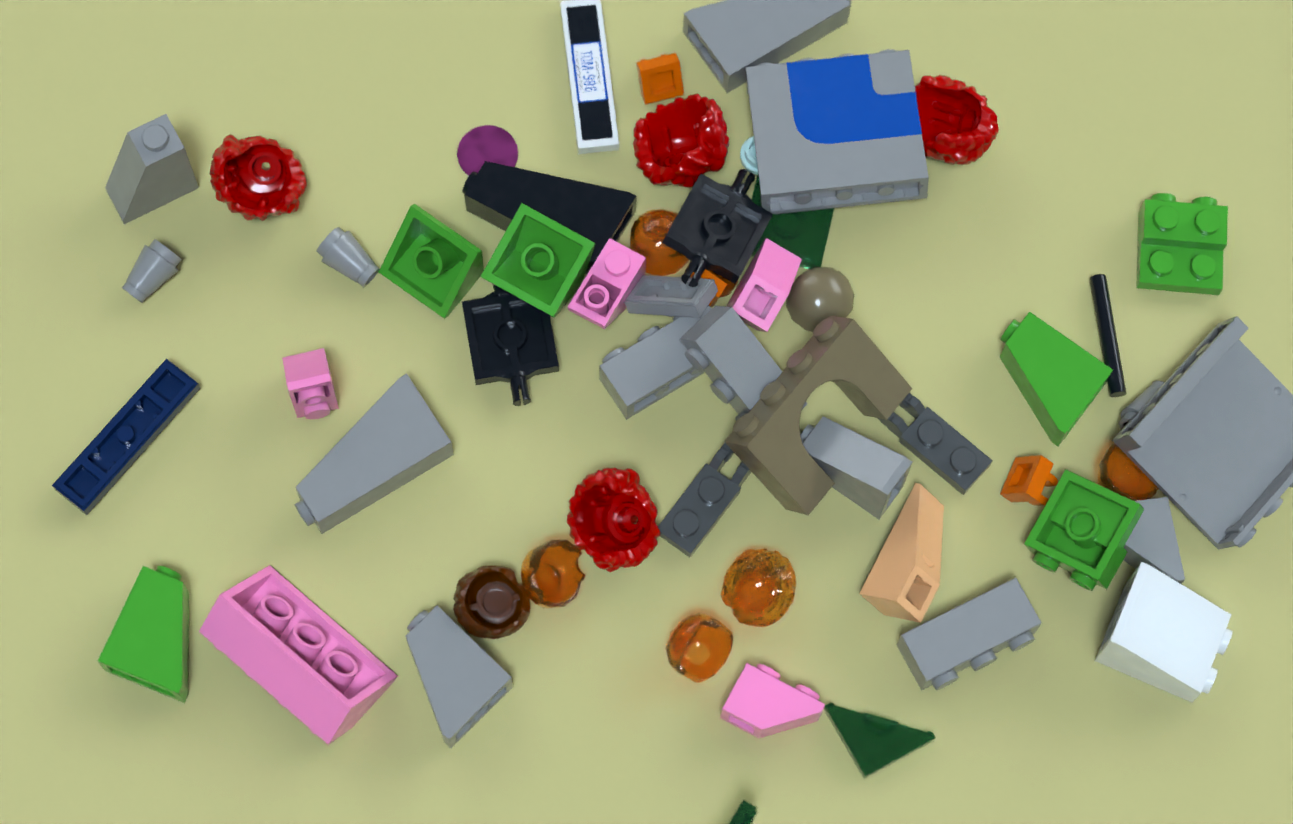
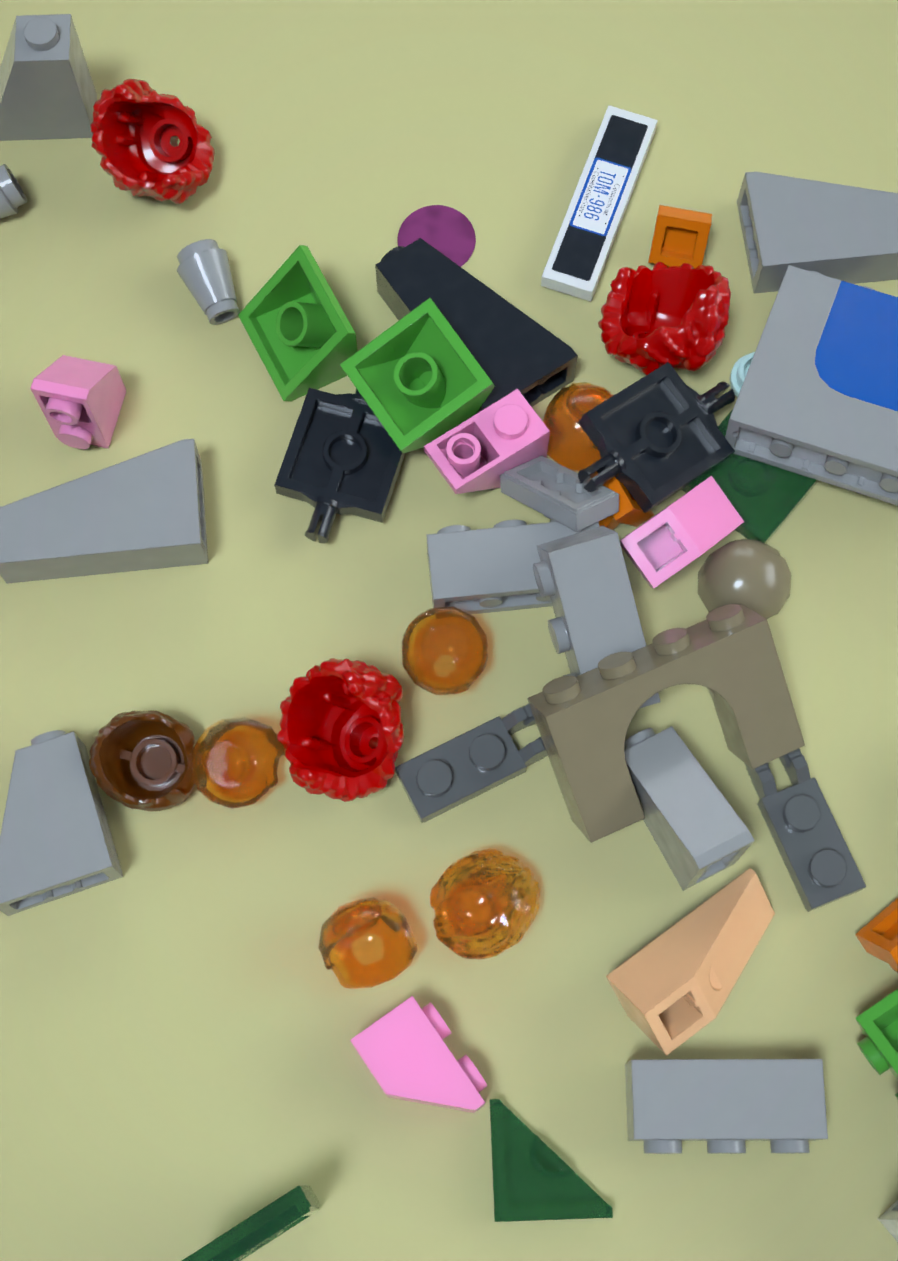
camera: 30 degrees right, 0 degrees up
(649, 437) = (444, 650): none -> clear orange hair

